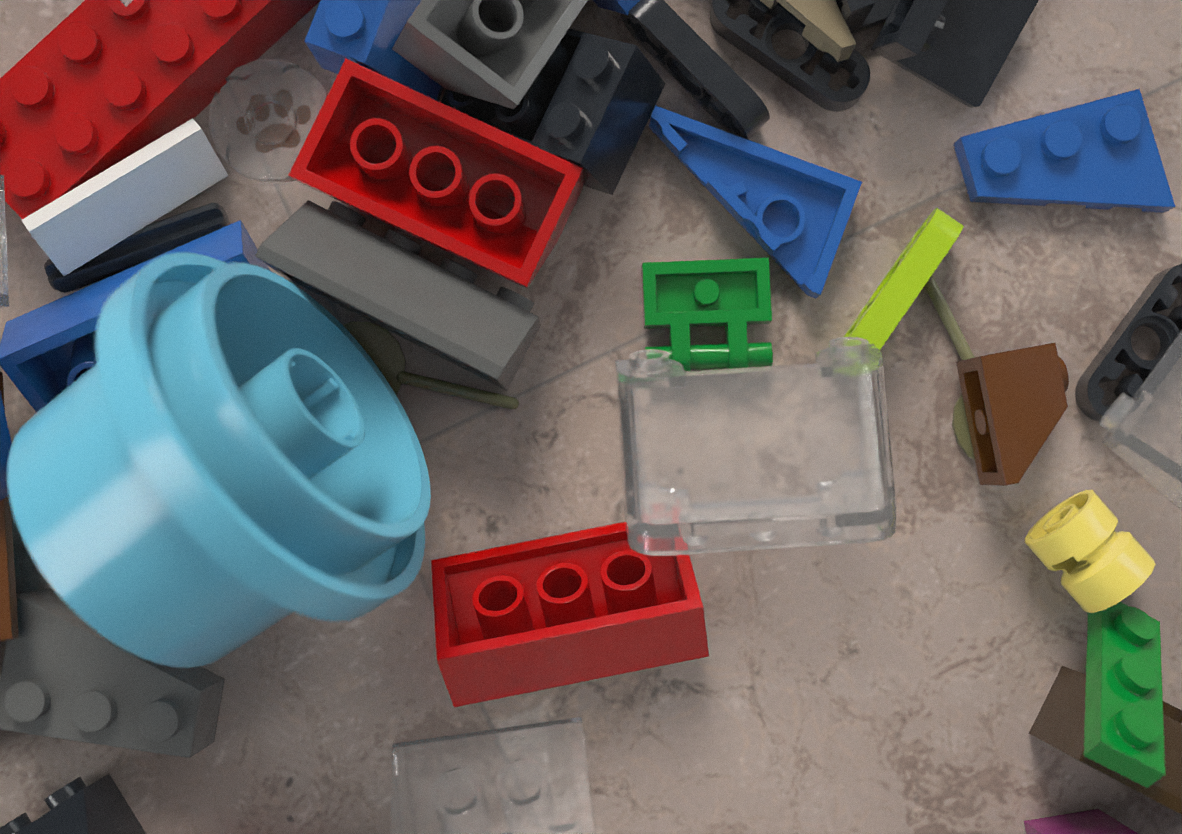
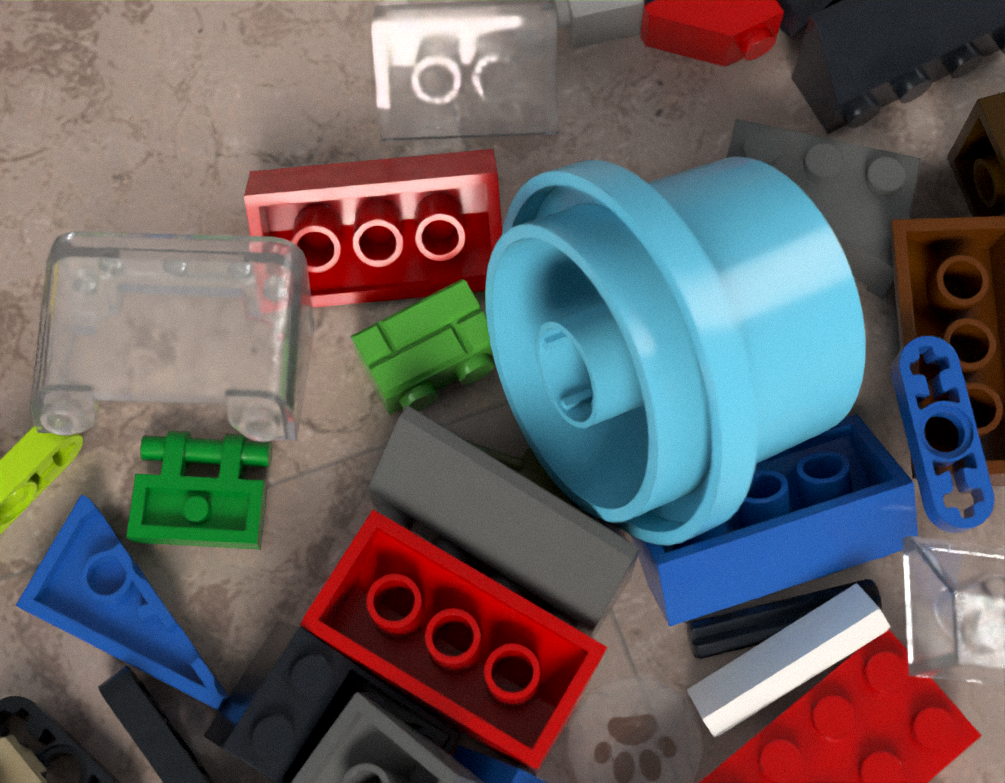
camera: 170 degrees left, 15 degrees down
(500, 479) = (426, 348): none -> bright green brick

